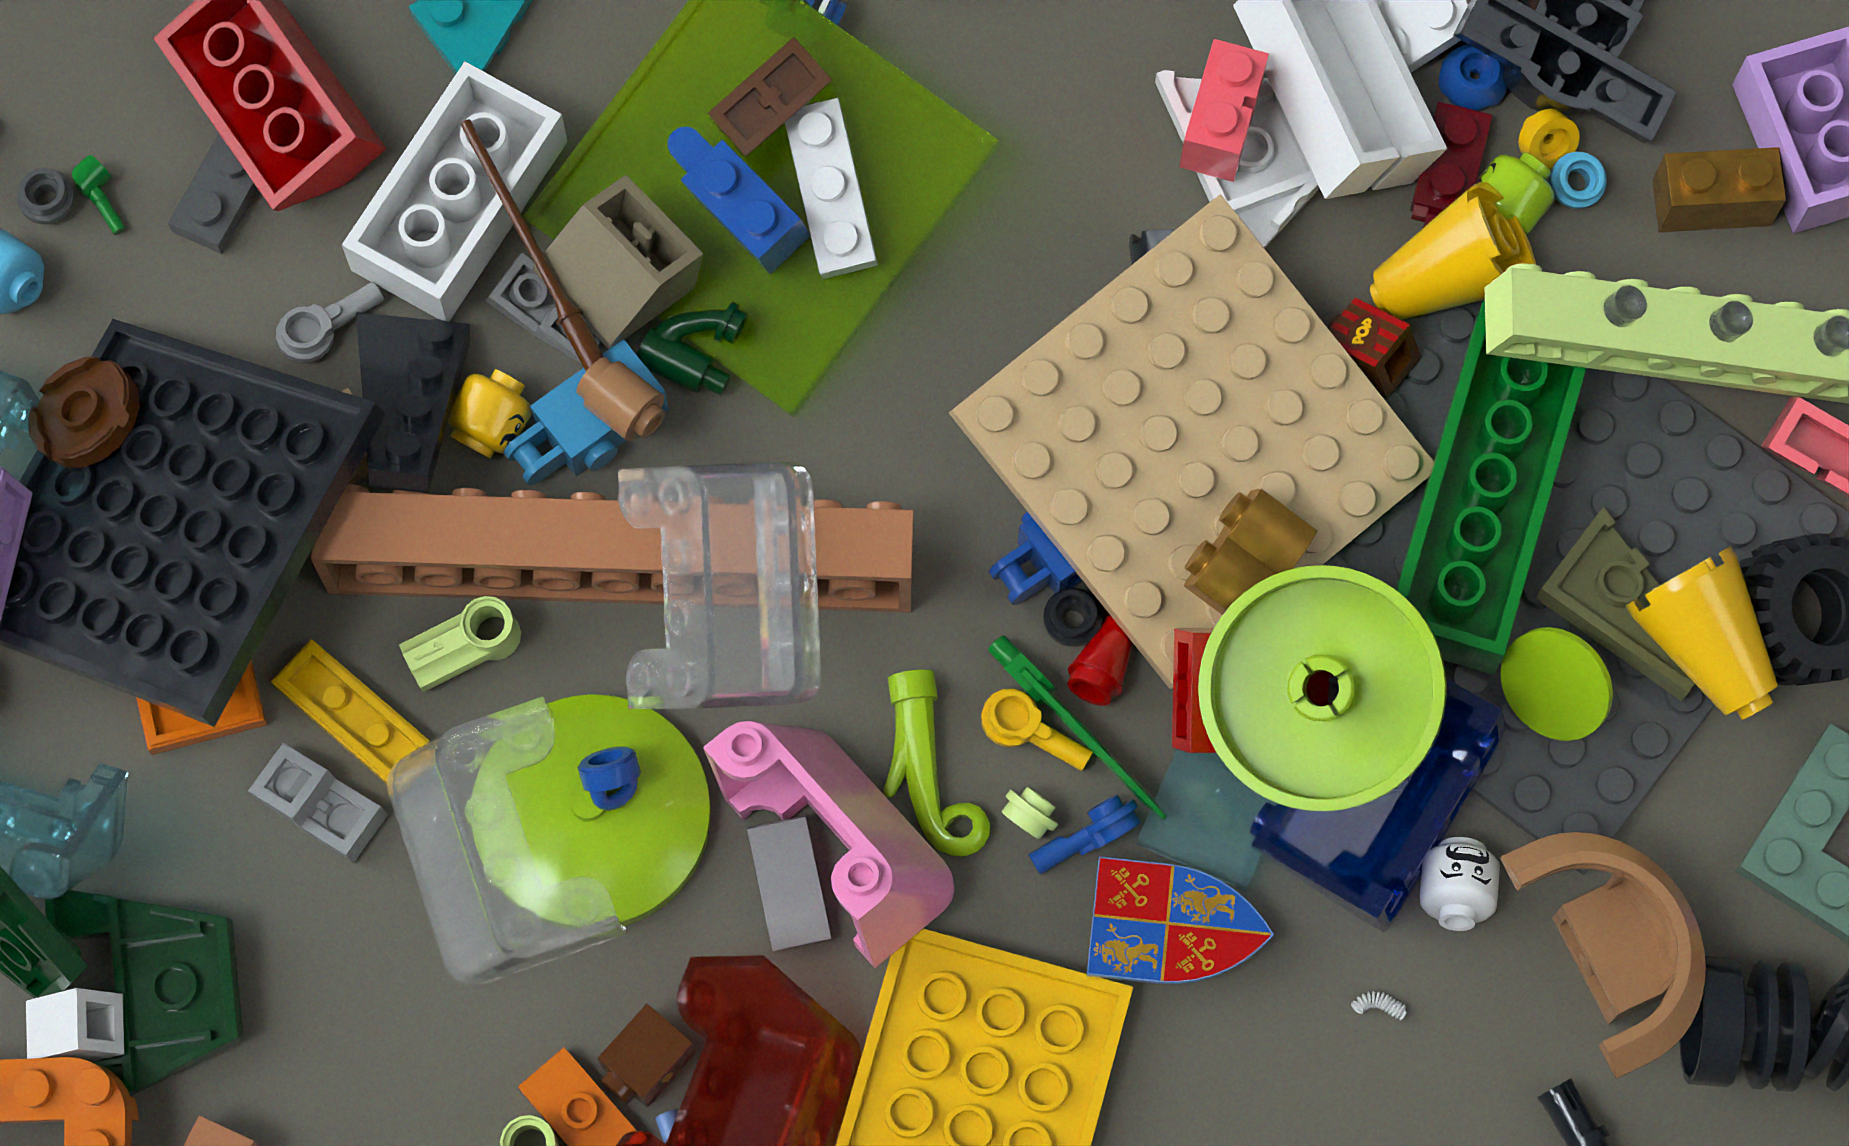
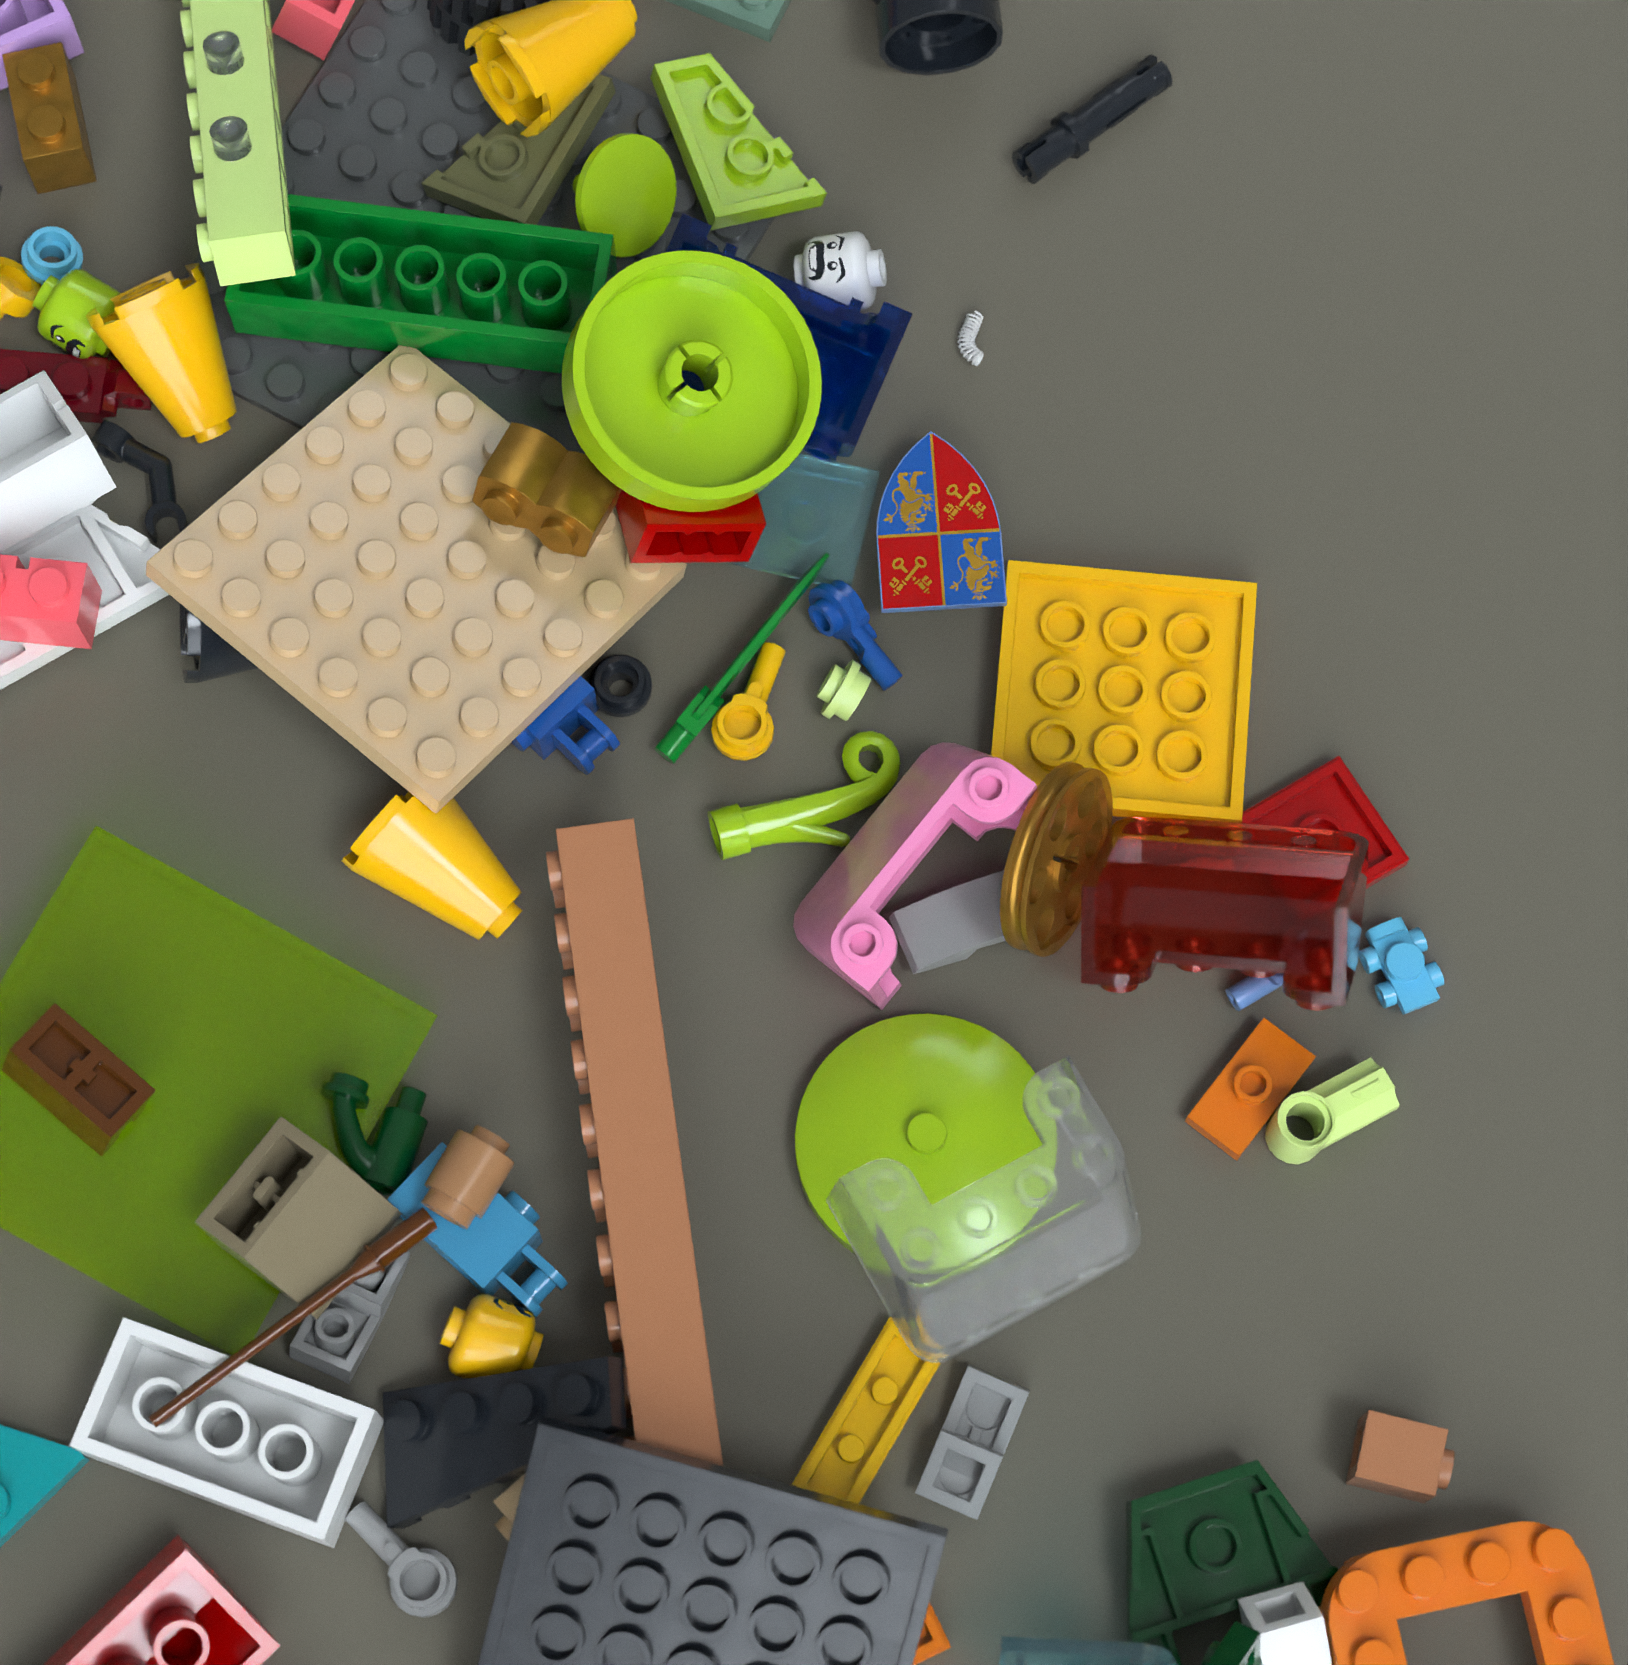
camera: 100 degrees left, 0 degrees up
(455, 646) = (770, 1323): yellowish green piece -> none
(607, 771) = (896, 1109): blue tile -> none
(644, 1057) = (1182, 1028): reddish brown brick -> none
(733, 585) = (671, 993): clear windscreen -> none
(738, 198) = (201, 1099): blue brick -> none
(816, 950) = (1062, 820): none -> pearl gold wedge
(830, 189) = (178, 1000): white plate -> none
(914, 428) = (437, 865): none -> yellow cone
(1101, 665) = (670, 645): red cone -> none
(1377, 220) = (121, 446): none -> black arm
(1377, 344) = (269, 420): reddish brown brick -> none
(1612, 789) = (726, 150): none -> lime wing
(1627, 938) = (871, 108): medium nougat piece -> none

